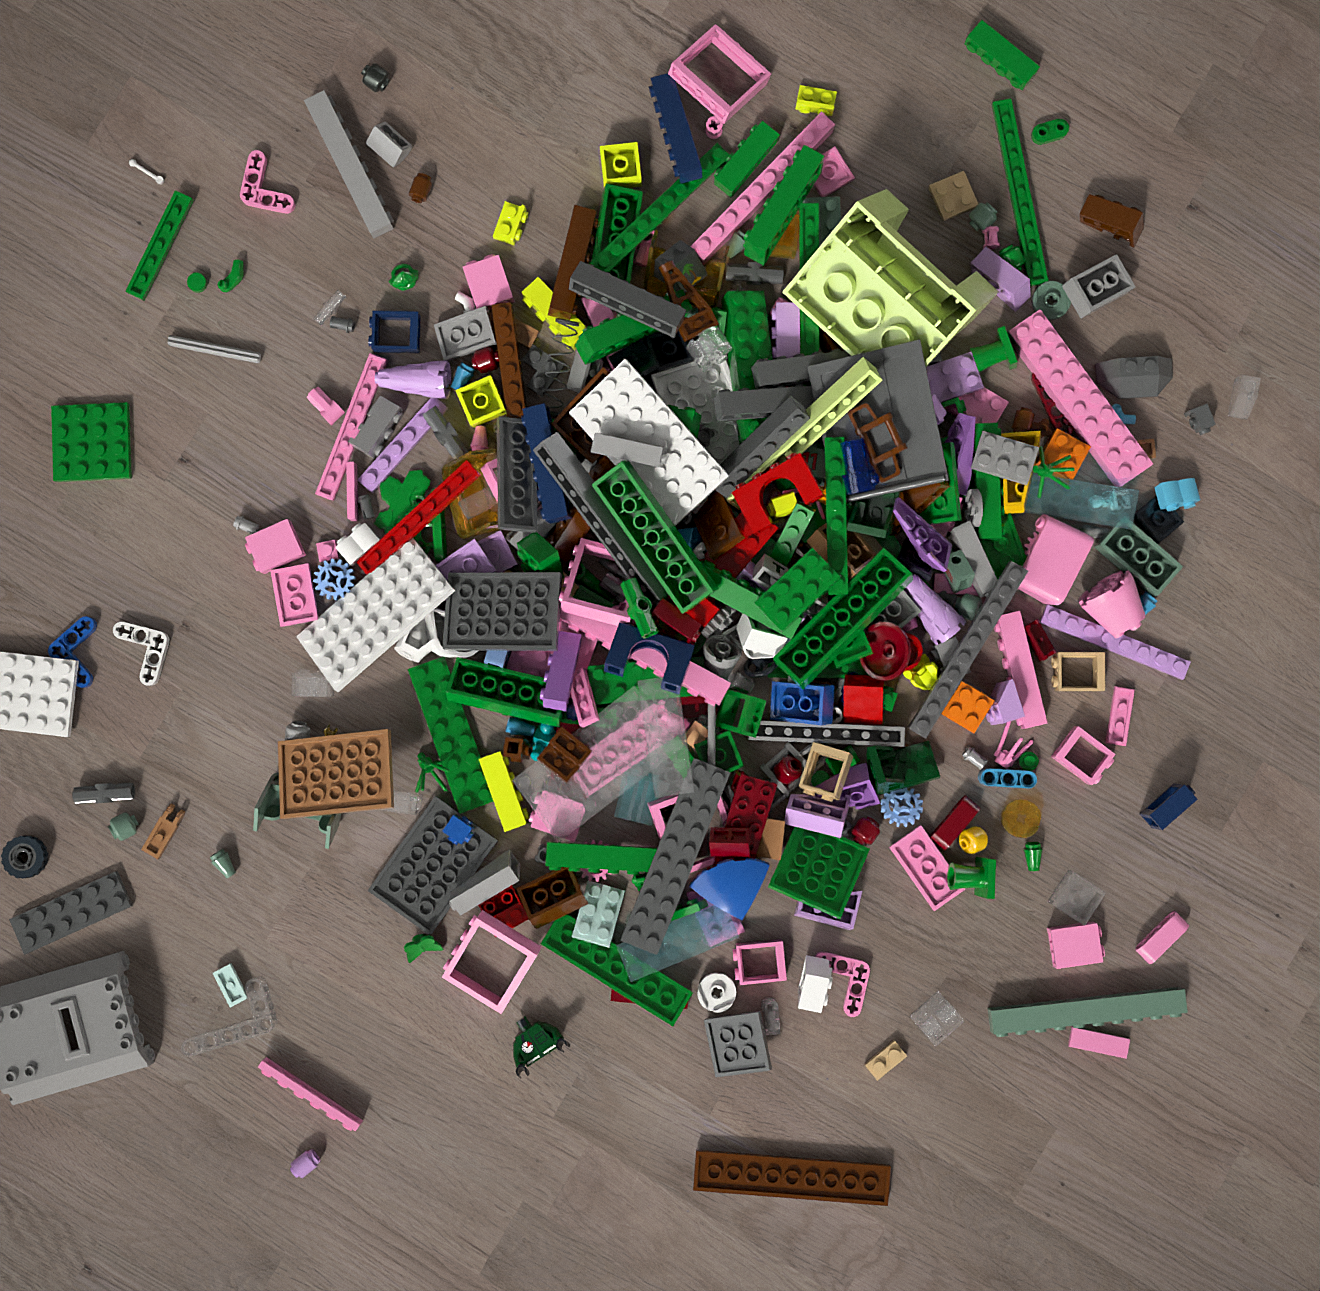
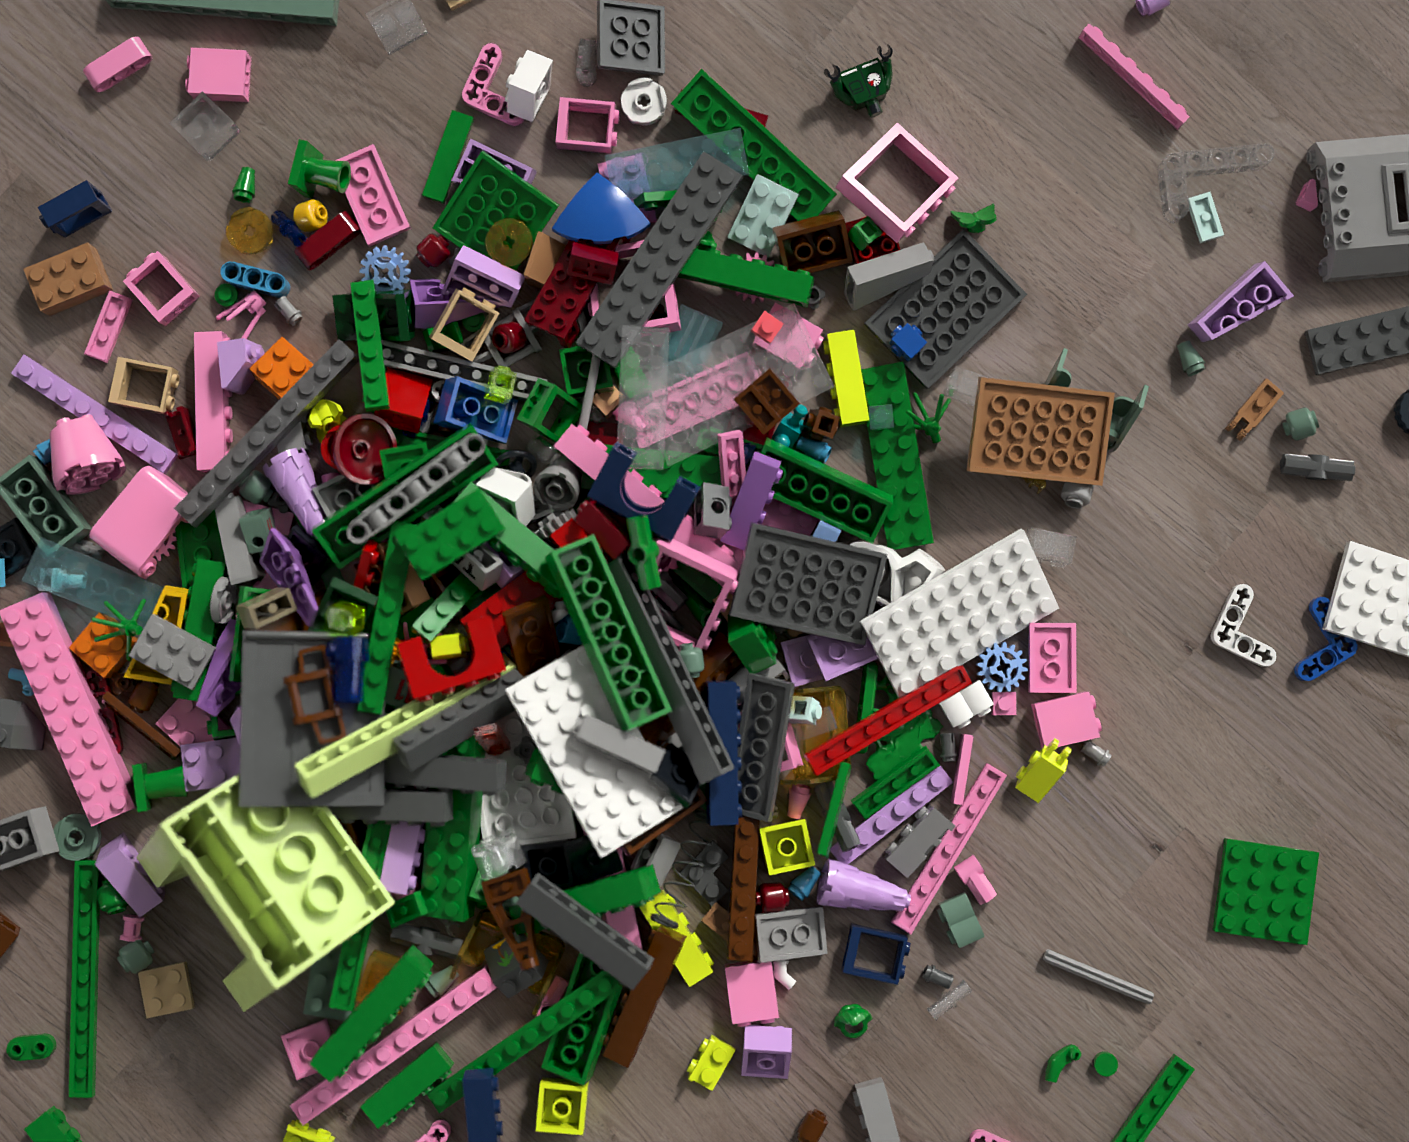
camera: 175 degrees left, 0 degrees up
(147, 1020) = (1308, 196): none -> bright pink slope
(188, 918) = (1245, 299): none -> lavender wedge
(286, 500) = (1042, 771): none -> neon yellow hinge
(331, 371) = (960, 920): none -> sand green brick
(404, 470) = (895, 782): none -> green tile
(448, 436) = (834, 809): none -> green tile
(467, 239) = (766, 1051): none -> lavender slope
(469, 763) = (881, 417): none -> clear light blue plate
(479, 510) = (805, 710): none -> light aqua brick
(510, 912) = (864, 233): none -> green slope
(575, 816) = (767, 327): none -> coral plate
(578, 436) = (676, 776): none -> black plate
(585, 534) = (692, 658): none -> sand green head
(595, 646) = (705, 519): none -> dark grey brick
(732, 437) = (492, 739): none -> clear red plate
(773, 292) = (406, 909): none -> green plate
(780, 732) = (507, 378): none -> clear neon green brick
(800, 858) = (502, 253): none -> clear yellow plate
(834, 623) = (415, 488): none -> light grey beam
(861, 559) = (368, 559): none -> red plate
(868, 508) = (346, 617): none -> clear neon green brick
(870, 913) = (448, 156): none -> green tile
(899, 737) = (370, 346): none -> green plate
(935, 505) = (266, 608): none -> dark tan brick
(989, 825) = (288, 228): none -> clear blue pin
(1018, 396) = (140, 726): none -> reddish brown tile
(1161, 748) = (68, 279): none -> medium nougat brick

